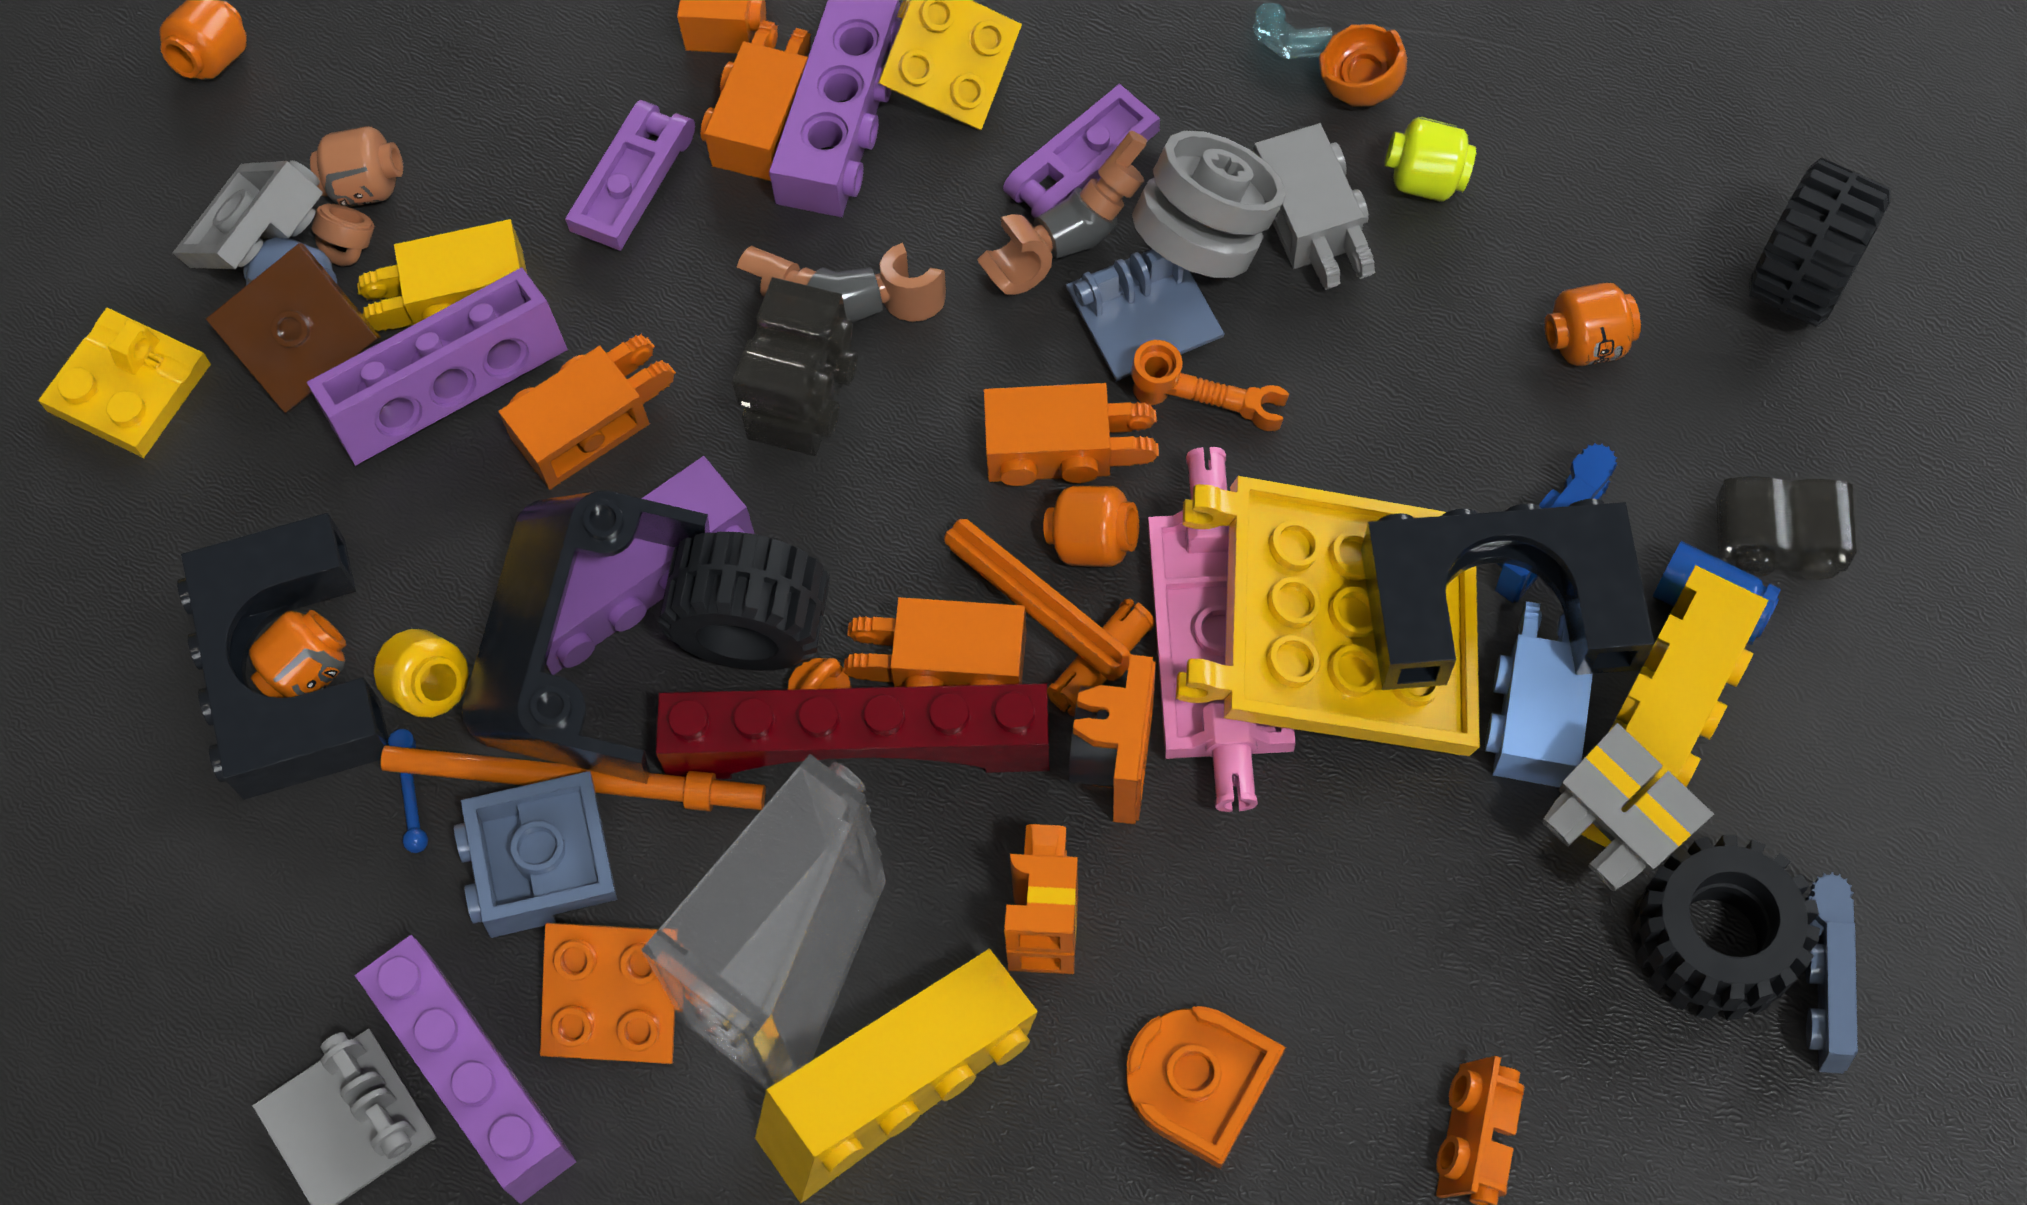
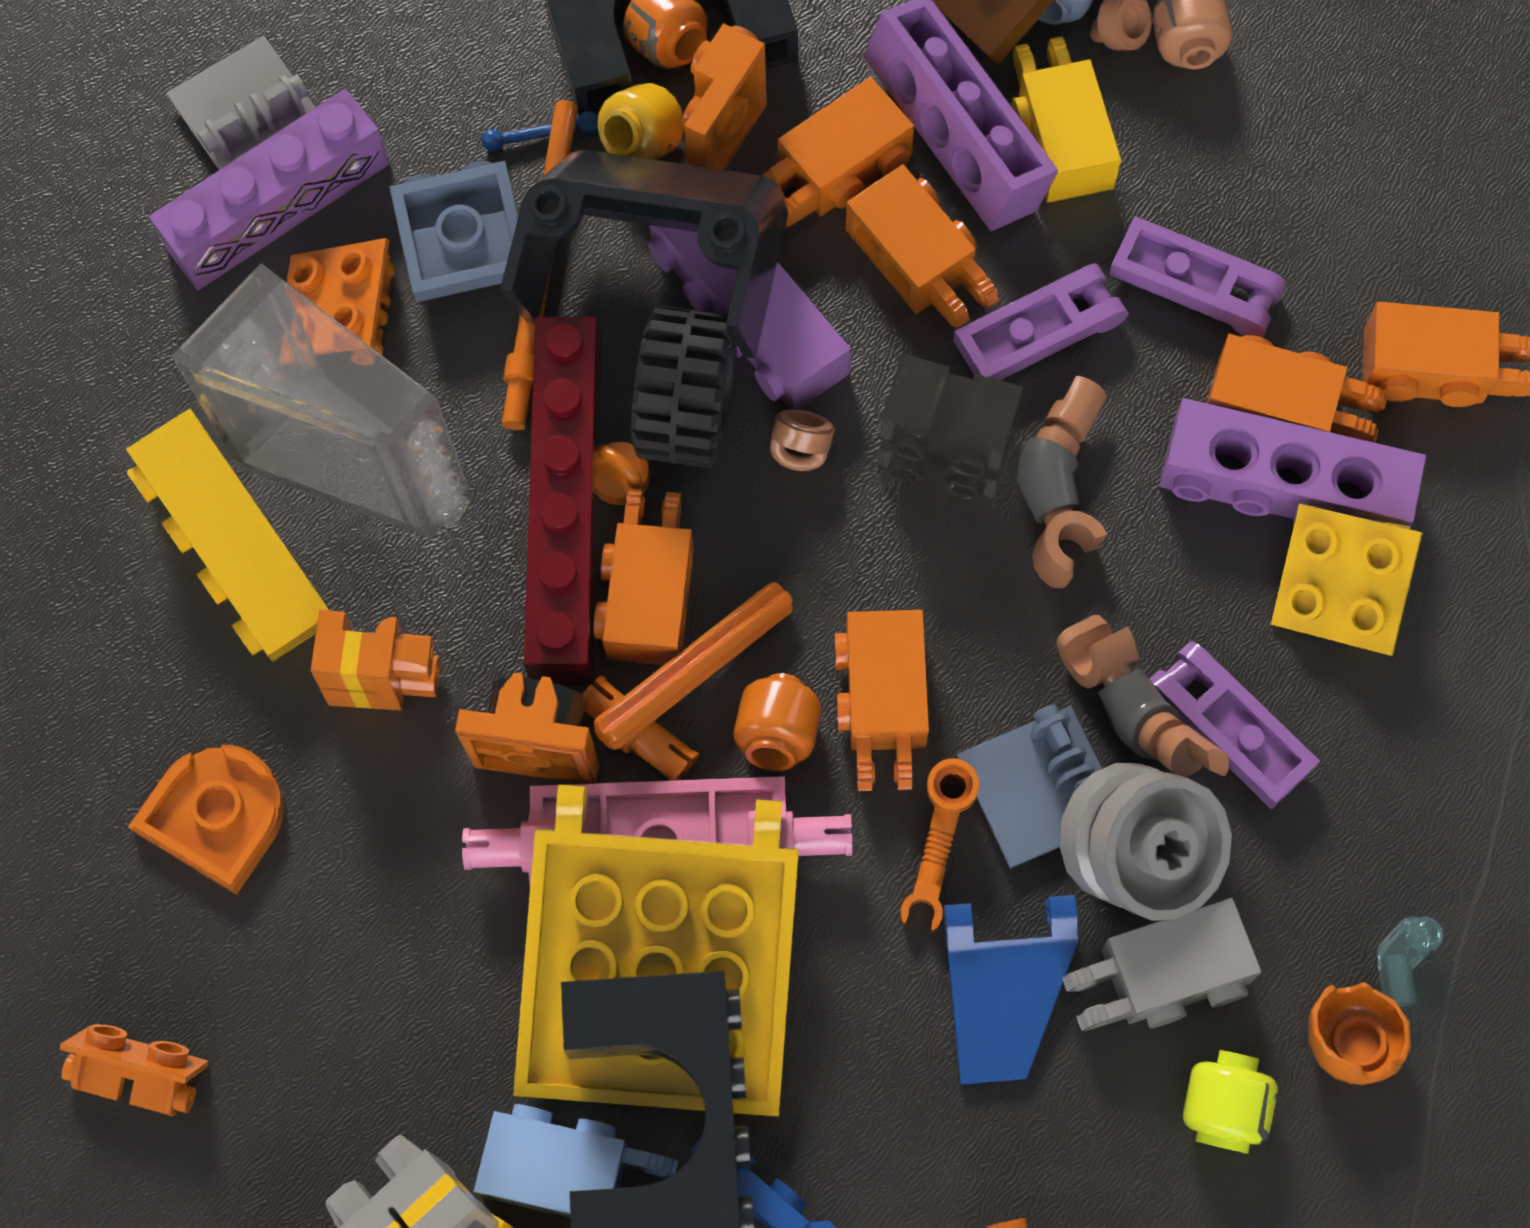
camera: 90 degrees right, 5 degrees up
(409, 582) = (726, 96): none -> orange plate
(465, 478) = (841, 150): none -> orange hinge
(676, 308) = (1039, 324): none -> medium lavender plate
(786, 511) = (803, 433): none -> nougat tile
(1335, 337) = (1005, 990): none -> blue flag

